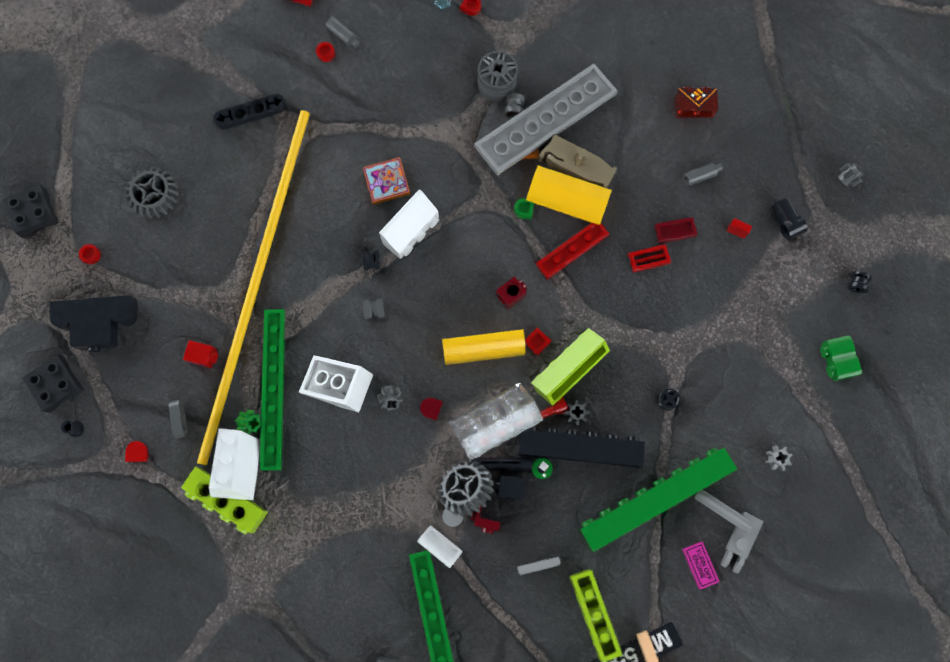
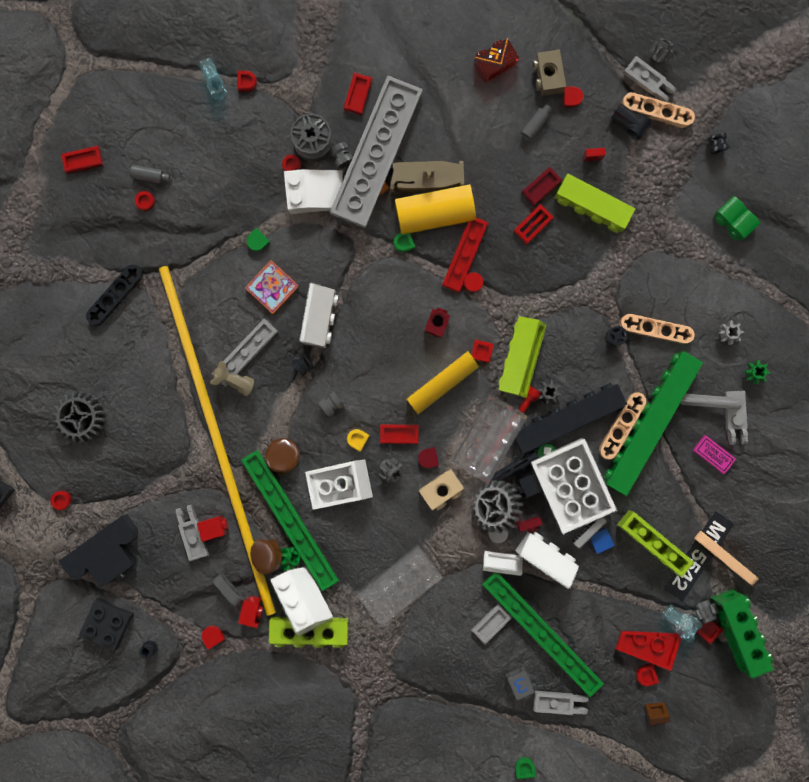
camera: 35 degrees left, 10 degrees up
(174, 361) = (190, 535): none -> light grey hinge
(184, 450) = (251, 611): none -> red brick
(230, 406) = (266, 555): none -> reddish brown piece
(302, 328) = (282, 455): none -> reddish brown piece
(303, 239) = (242, 384): none -> dark tan animal
(327, 222) = (249, 348): none -> light grey tile
(331, 507) = (399, 585): none -> clear brick
(378, 353) = (357, 439): none -> yellow tile
(395, 598) = (491, 623): none -> light grey tile
(398, 136) = (257, 241): none -> green tile
(412, 443) = (446, 479): none -> tan brick
(418, 371) = (398, 434): none -> red tile
(467, 91) = (291, 162): none -> red tile
(469, 118) = (311, 189): none -> white slope
(485, 567) = (548, 558): none -> white slope
(545, 582) = (601, 541): none -> blue tile
(548, 511) = (573, 485): none -> white slope
(559, 66) = (357, 93): none -> red tile
(565, 277) = (473, 282): none -> red tile
(628, 487) = (624, 427): none -> light nougat beam
(712, 412) = (656, 329): none -> light nougat beam
(715, 270) = (594, 203): none -> lime brick
(744, 130) = (549, 61): none -> dark tan brick
(747, 170) = (572, 96): none -> red tile
(777, 510) = (761, 374): none -> green gear
(821, 221) = (658, 107): none -> light nougat beam
(825, 193) = (649, 79): none -> light grey hinge

